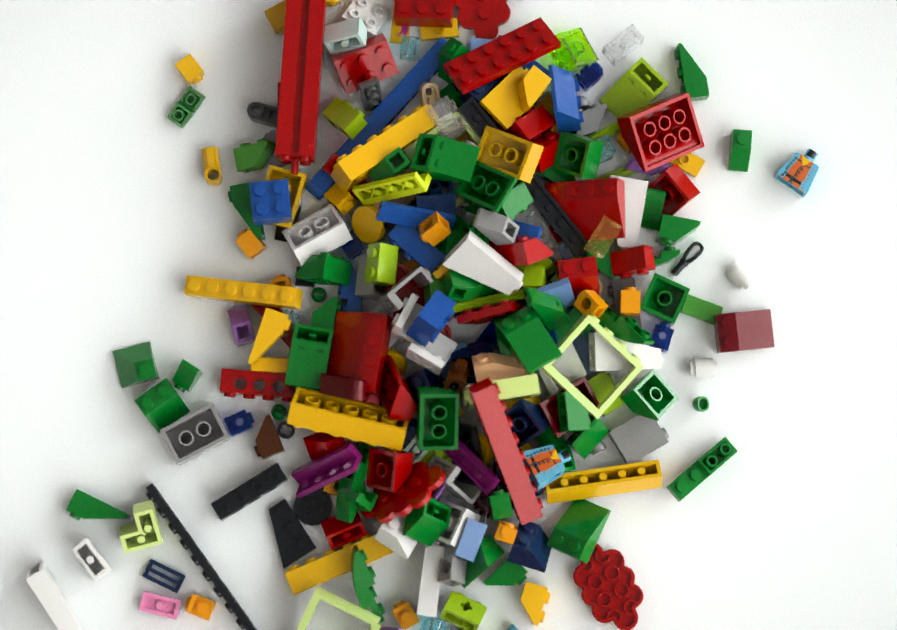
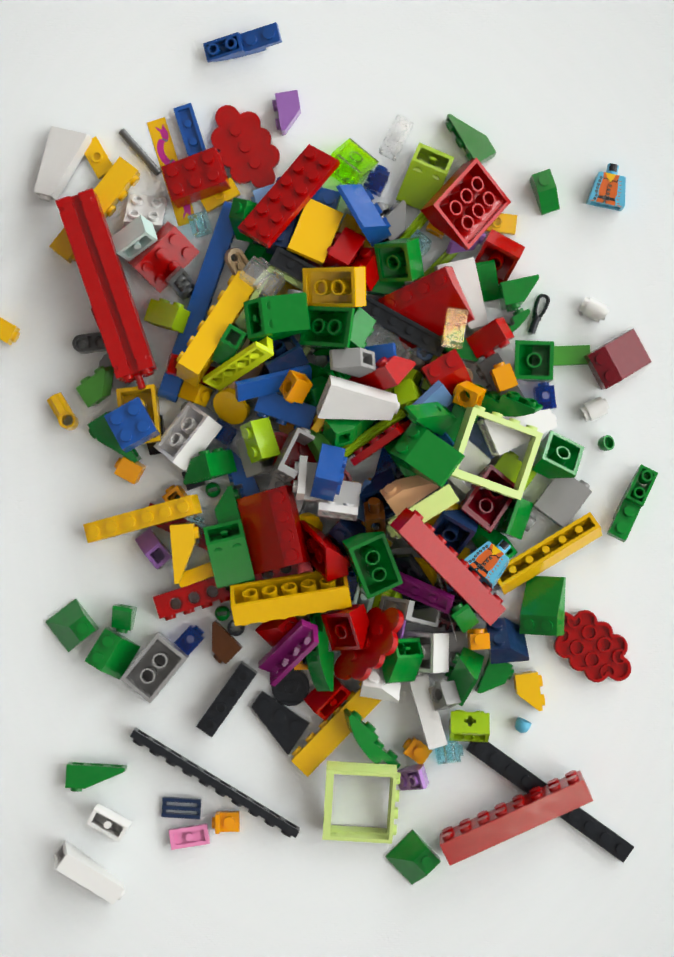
camera: 20 degrees left, 5 degrees up
(145, 531) = (145, 775): yellowish green brick -> none
(186, 107) = (15, 367): green slope -> none
(342, 387) = (272, 570): dark red beam -> none
(361, 501) = (336, 667): green bracket -> none
(471, 540) = (450, 660): light blue tile -> none
(531, 86) = (329, 213): yellow slope -> none
(572, 414) = (494, 505): slope -> none

